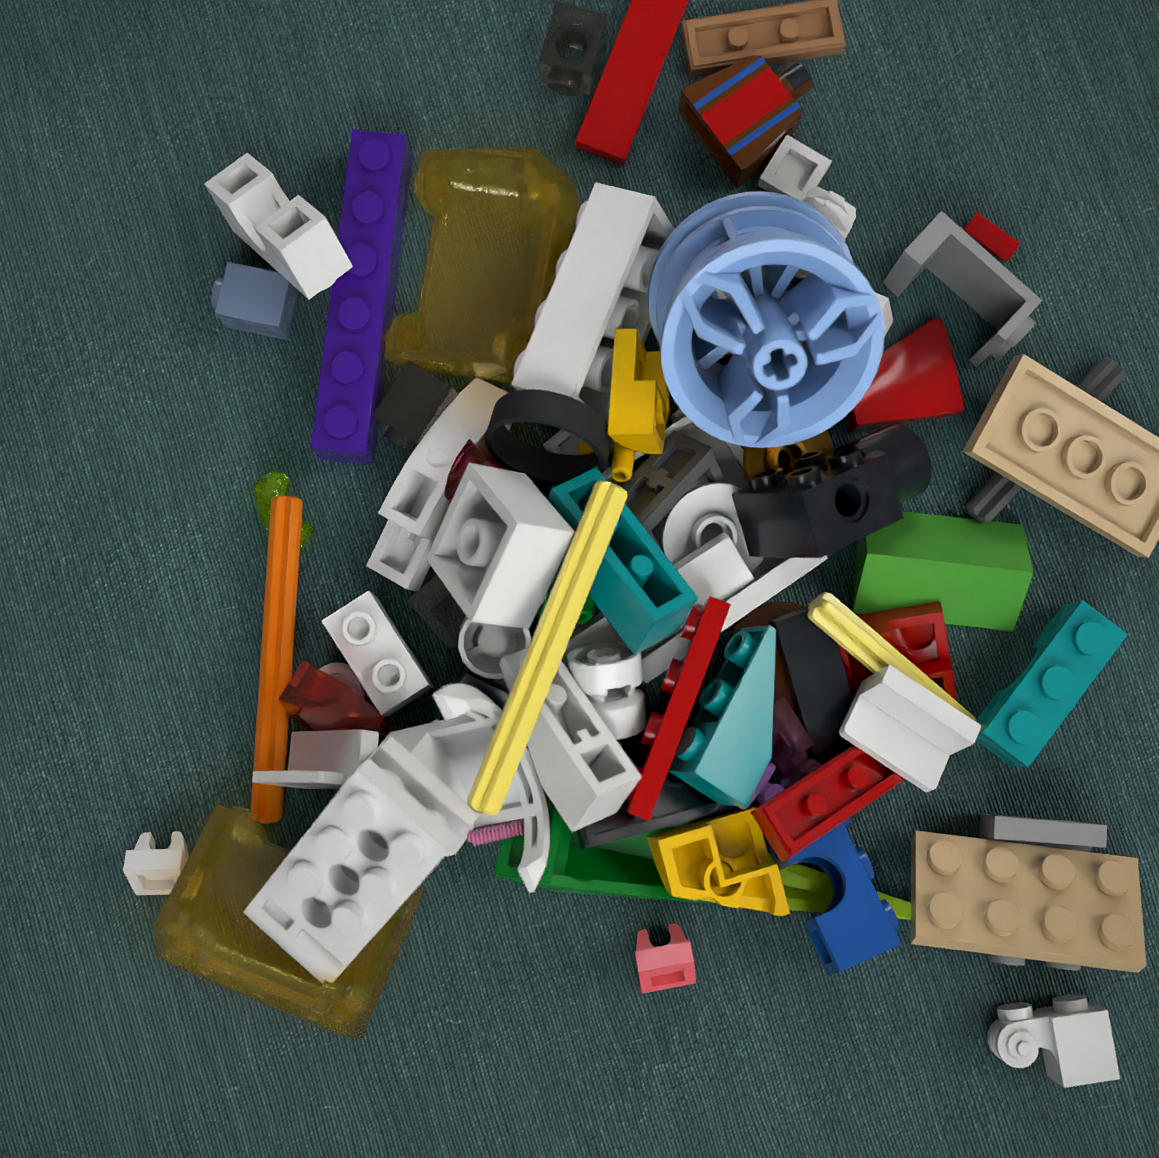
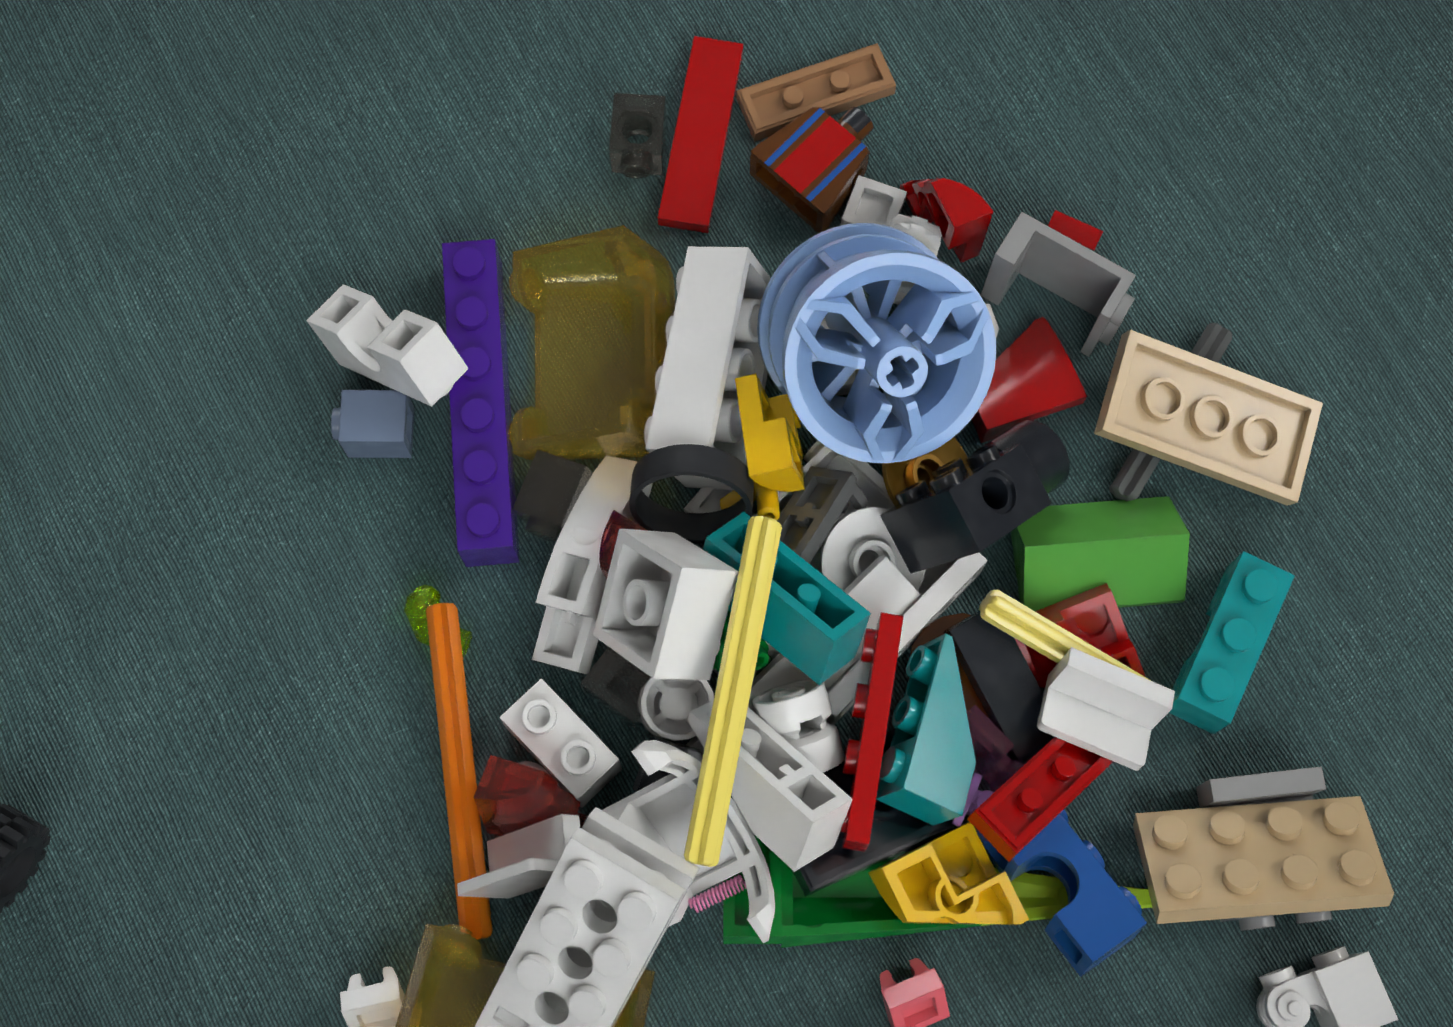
camera: 10 degrees left, 10 degrees down
(874, 192) = (955, 209): none -> red slope

